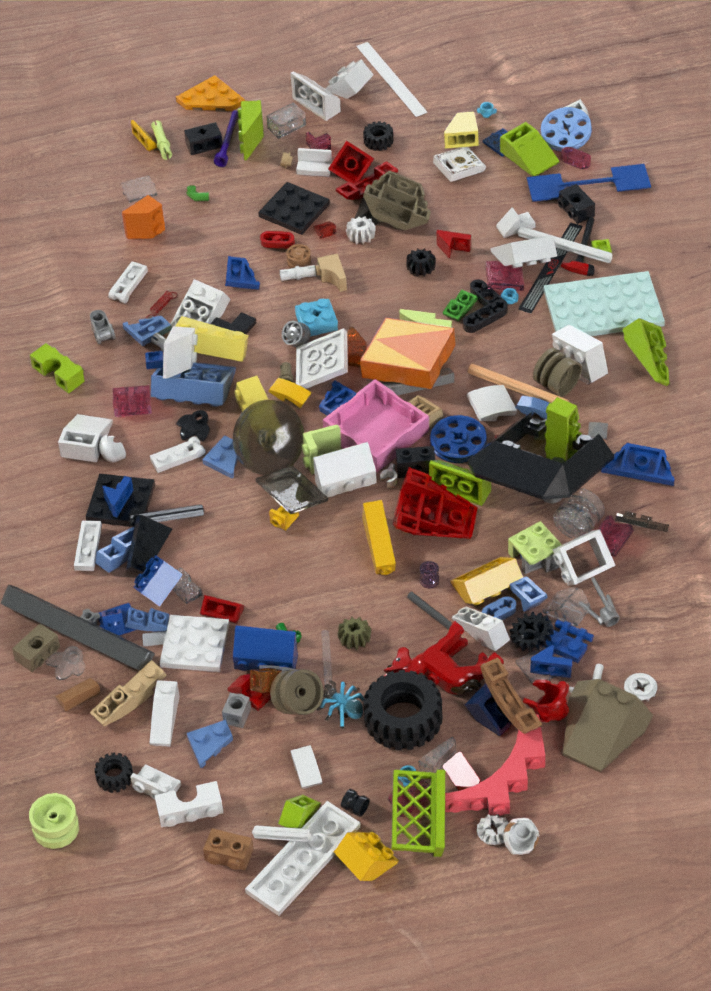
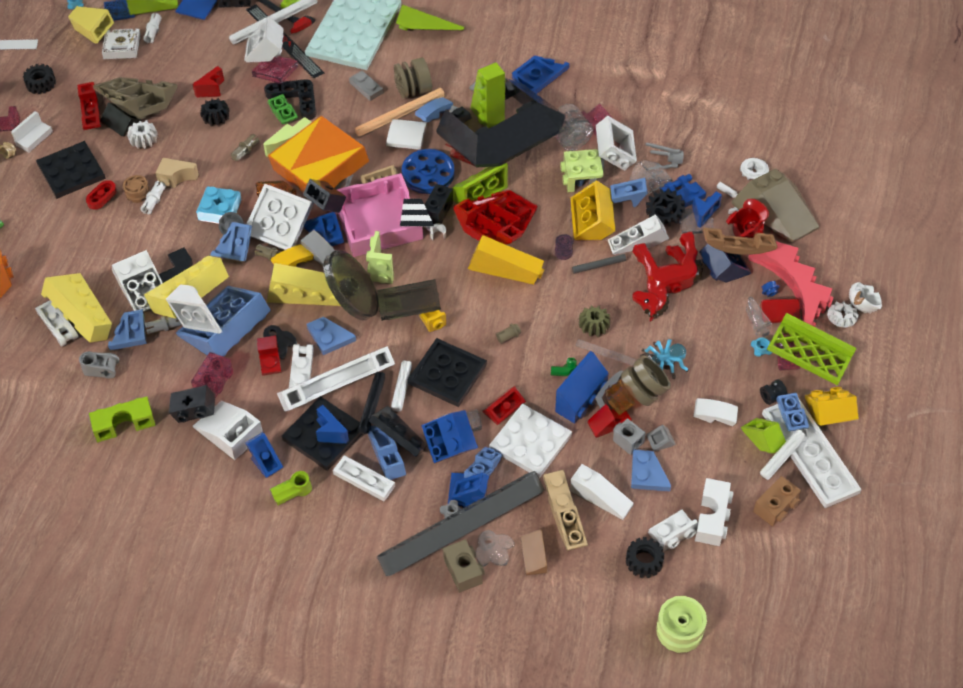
camera: 65 degrees left, 5 degrees up
(51, 503) = (291, 489): none -> lime piece
(70, 471) = (263, 455): none -> blue slope
(93, 401) = (192, 404): none -> black brick
(110, 450) = (264, 414): white hair -> none
(149, 282) = (78, 304): none -> light yellow wedge
(154, 359) = (177, 338): blue tile -> none
(155, 638) = (503, 470): white sticker -> none
(163, 305) = (103, 301): red piece -> none
(172, 478) = (335, 378): none -> white arch
(177, 423) = (269, 355): none -> red slope
(198, 529) = (401, 386): none -> white axle
(231, 553) = (447, 372): none -> black plate
(240, 274) = (119, 237): blue wing -> none
(253, 738) = (660, 438): none -> light grey slope
(278, 346) = (234, 243): none -> medium blue wing
(304, 578) = (508, 333): none -> dark tan pin
(310, 404) = (317, 246): none -> light grey slope
(325, 229) = (116, 158): clear red slope -> none
(331, 825) = (791, 412): none -> medium blue slope
(344, 470) = (418, 253): white slope -> none
(351, 163) = (59, 106): red slope -> none
(357, 374) = (324, 195): none -> black brick
(385, 446) = (415, 214): none -> sticker
(395, 302) = (244, 147): none -> dark tan axle
(403, 688) = (706, 300): black tyre -> none
(485, 756) = (770, 289): none -> blue plate
(494, 173) = (152, 28): none -> white pin
(498, 610) = (622, 220): medium blue beam -> none
(510, 295) = (298, 74): medium azure plate -> none
(512, 222) = (220, 39): white slope -> none
(534, 348) = (366, 85): none -> light grey plate
(583, 349) = (384, 57): white wedge -> none
(644, 521) = (603, 94): clear smoke wing -> none

